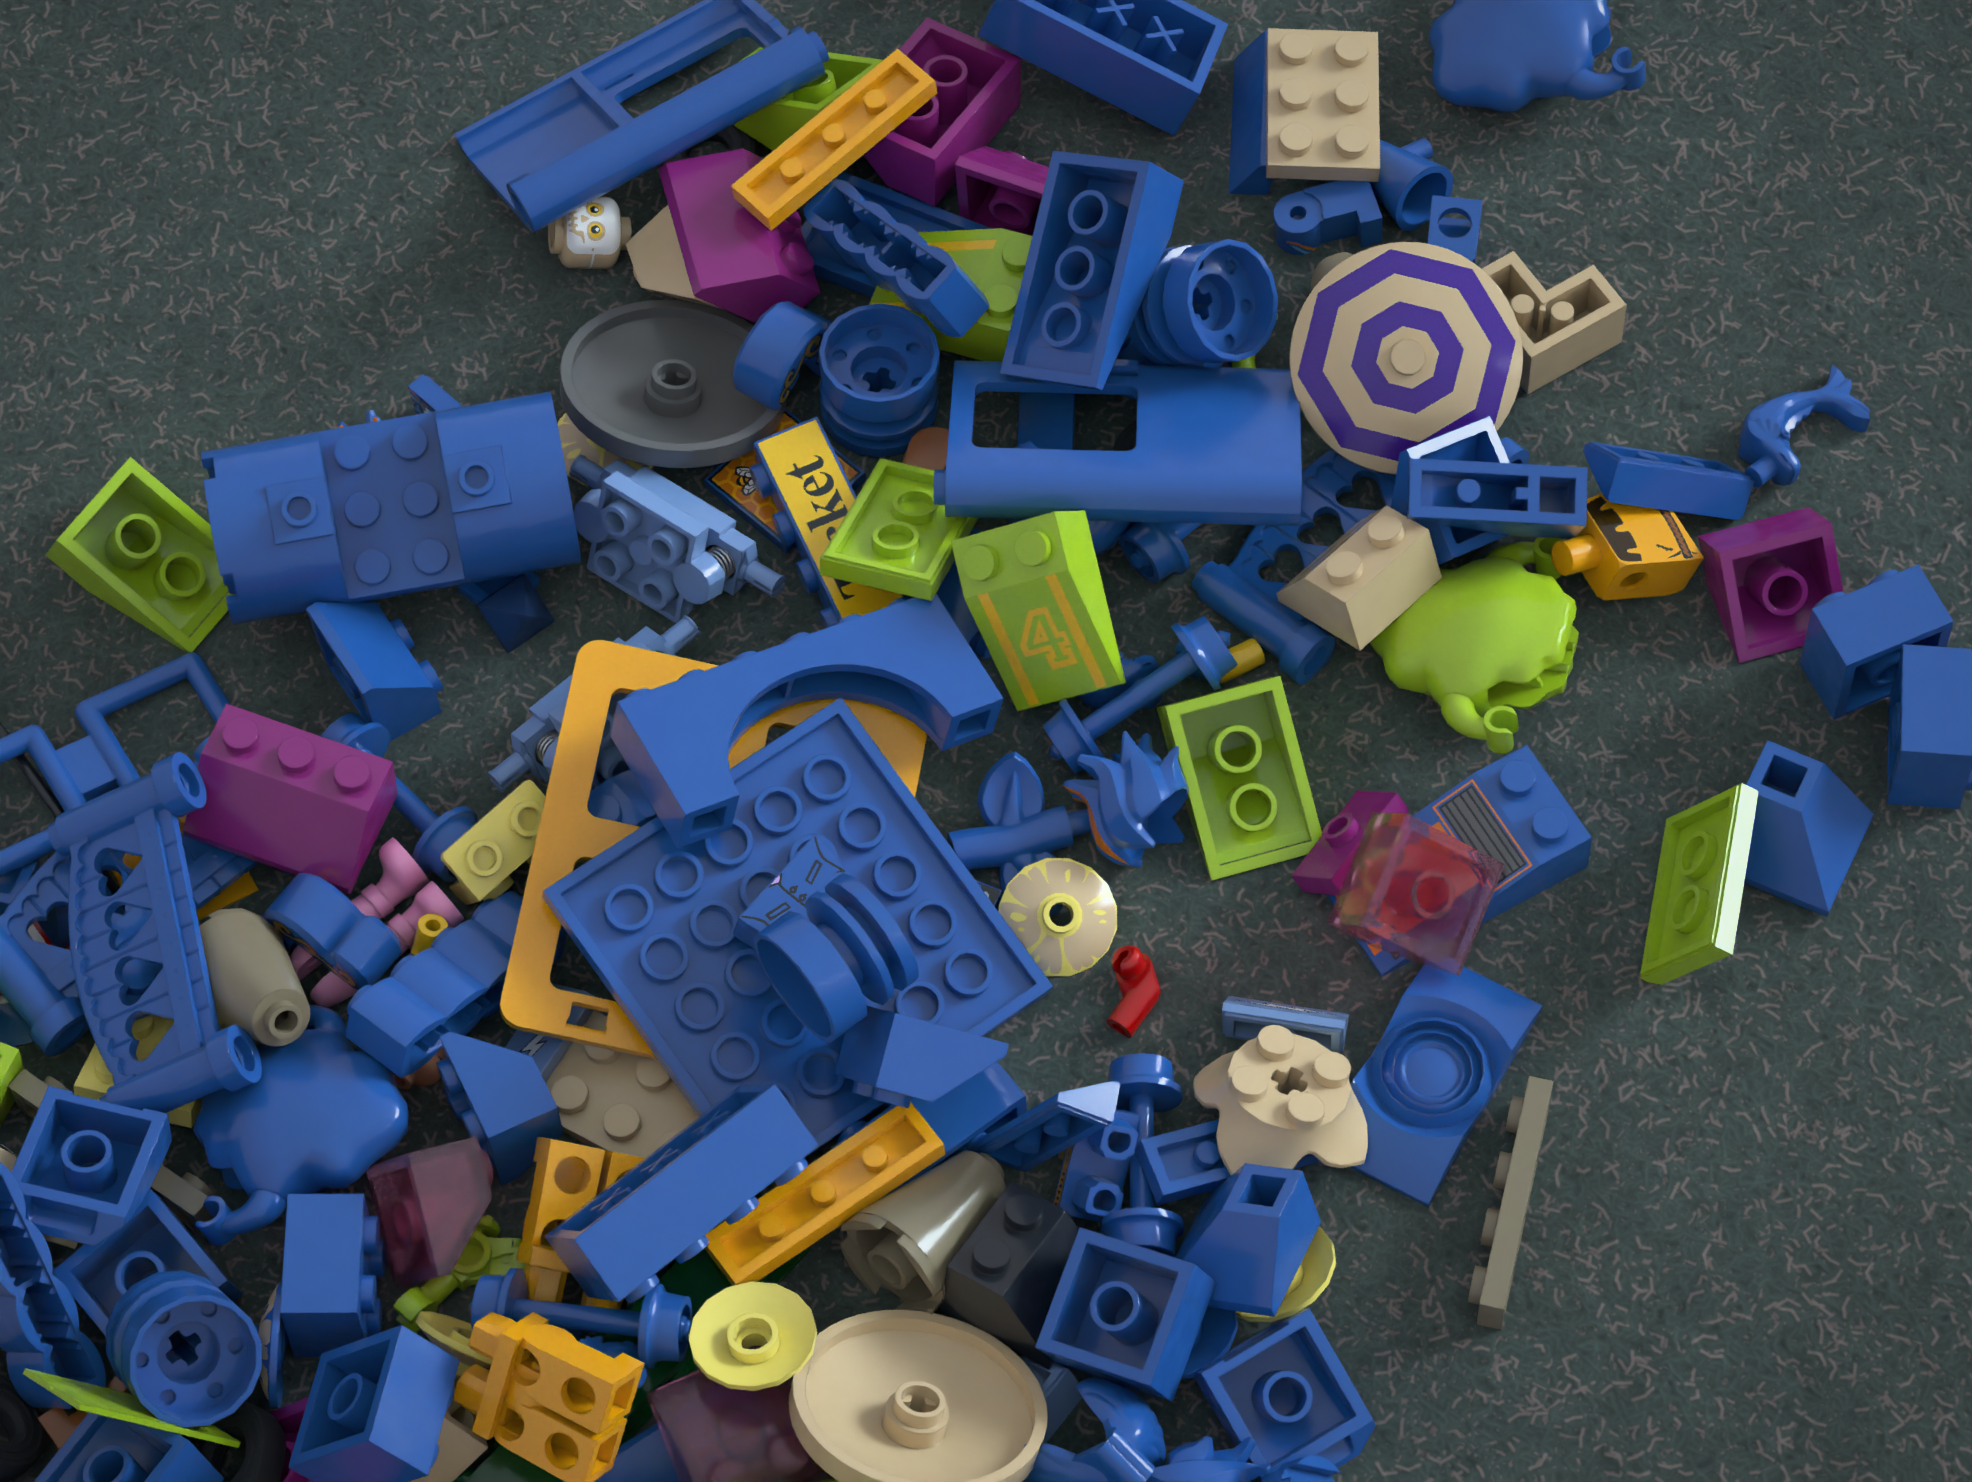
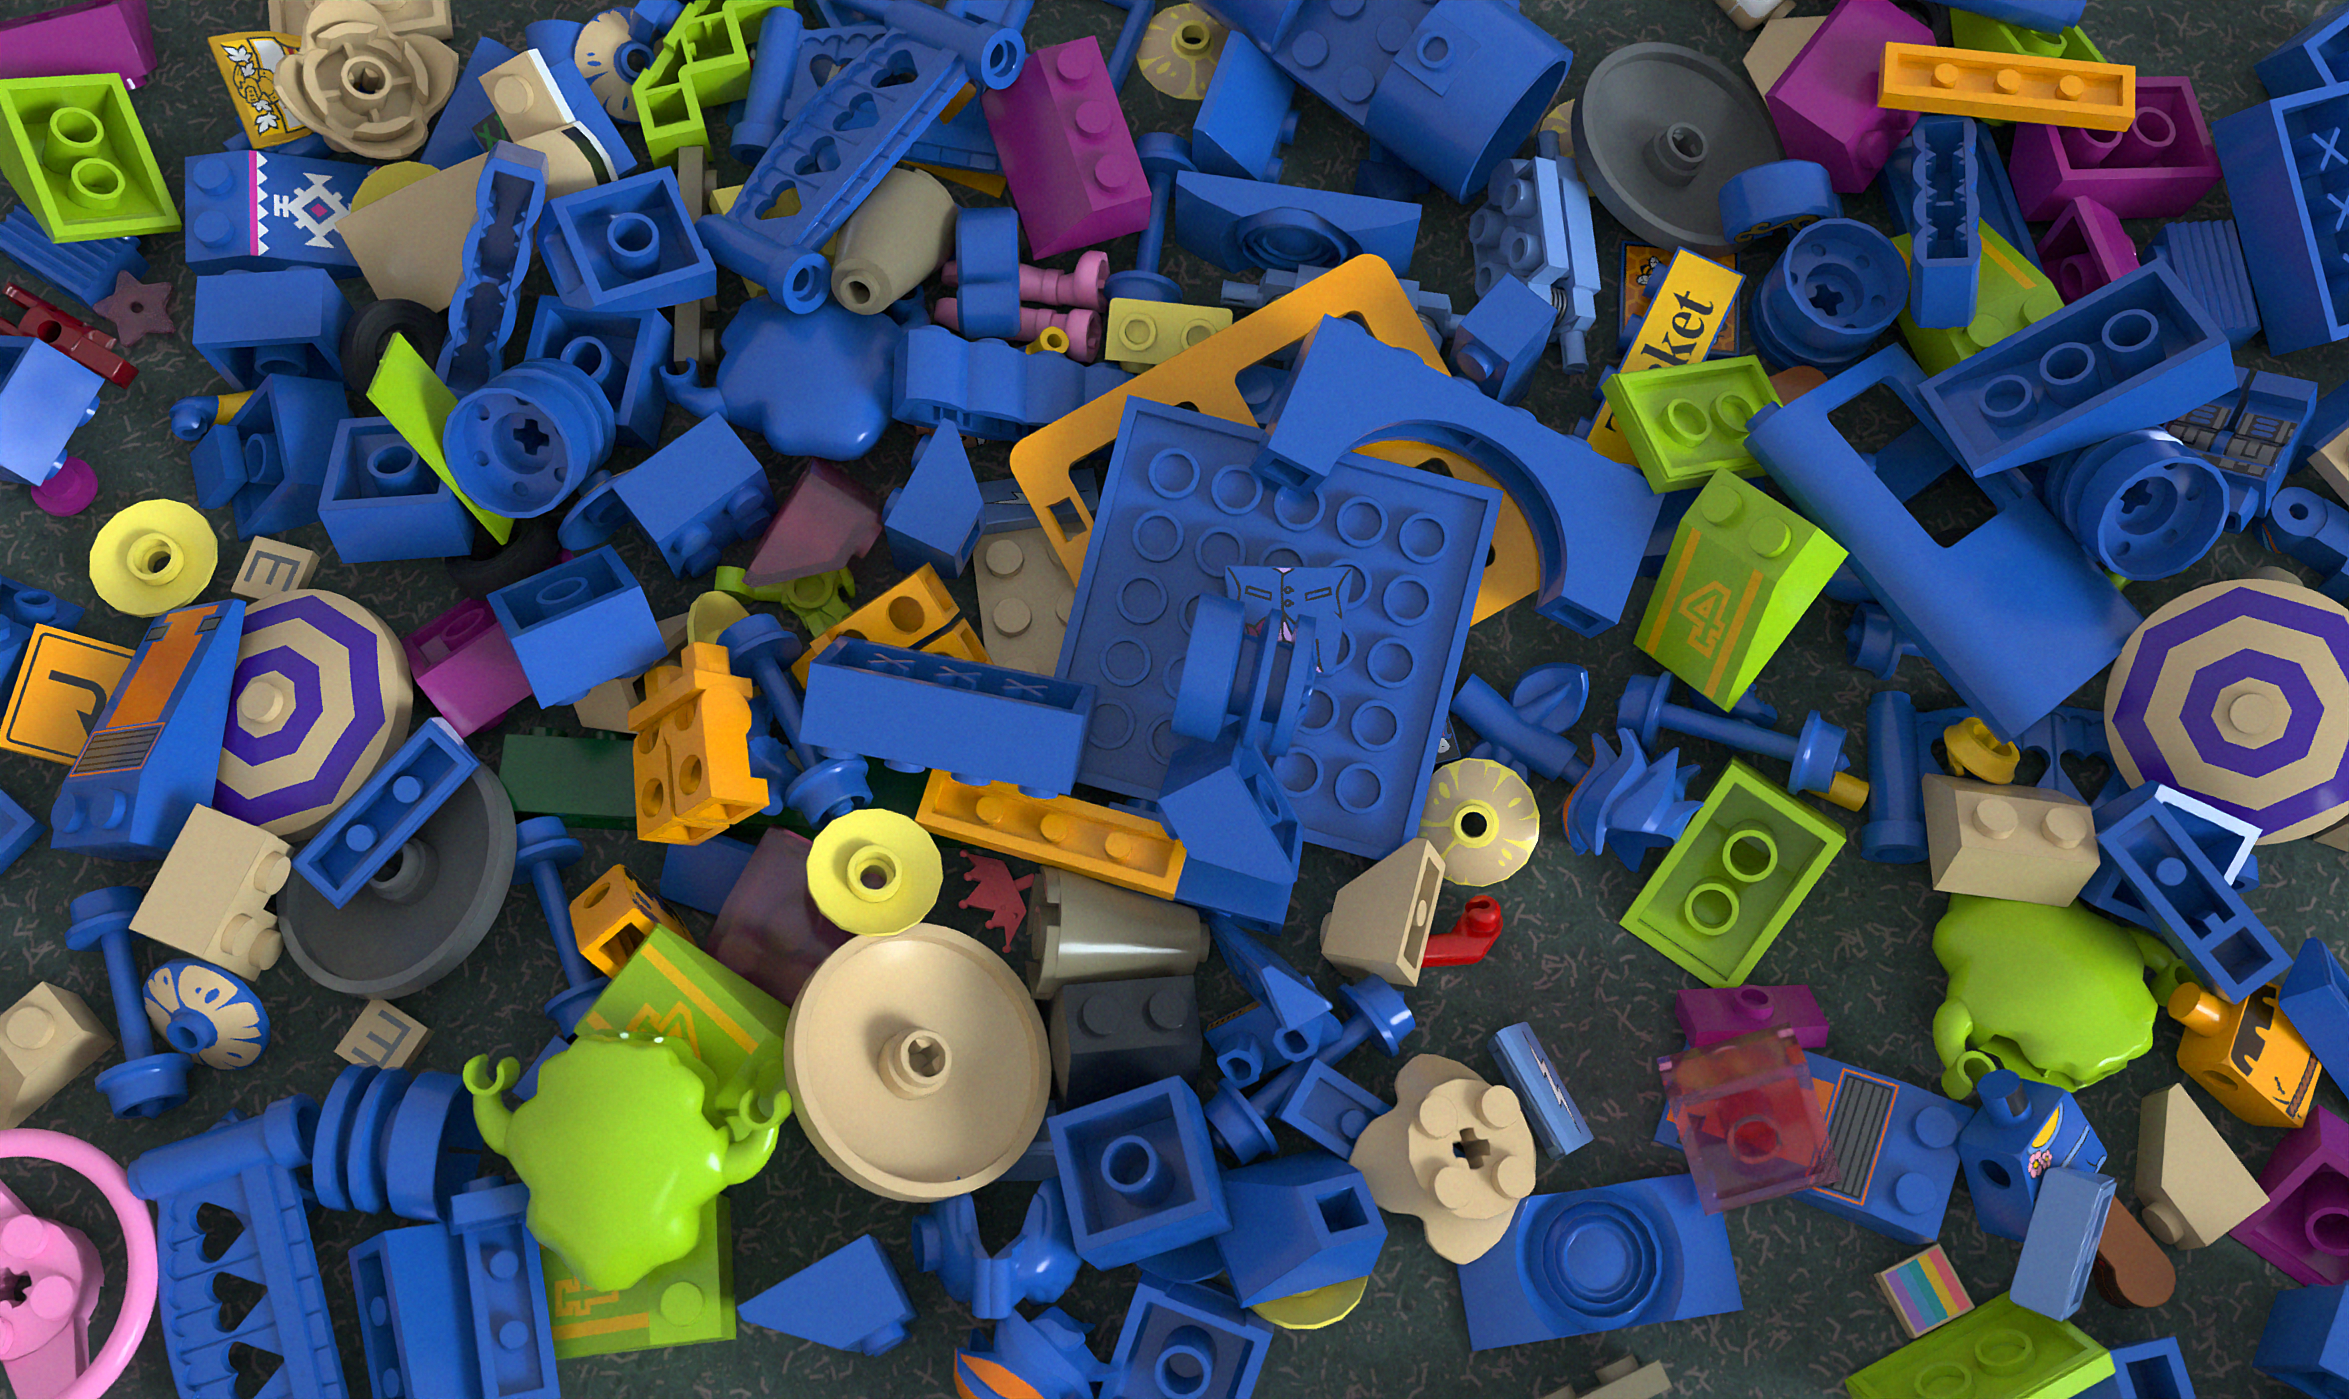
camera: 45 degrees right, 10 degrees up
(269, 678) = (1173, 64): none -> tan dish
(491, 695) = (1282, 226): none -> blue slope
(726, 607) = (1503, 341): none -> blue brick
(829, 1290) = (997, 894): none -> coral piece
(1075, 1025) = (1386, 916): none -> tan slope
(1082, 124) = (2214, 271): none -> blue brick
(1222, 199) = (2251, 437): none -> blue hips
(1290, 545) = (1980, 752): none -> yellow hat
(1583, 738) = (2015, 1141): none -> blue torso
(1622, 880) = (1924, 1291): none -> tile
(1654, 758) = (2062, 1241): none -> medium blue slope
(1677, 651) = (2189, 1173): none -> tan slope
(1685, 738) = (2129, 1265): none -> dark orange leg

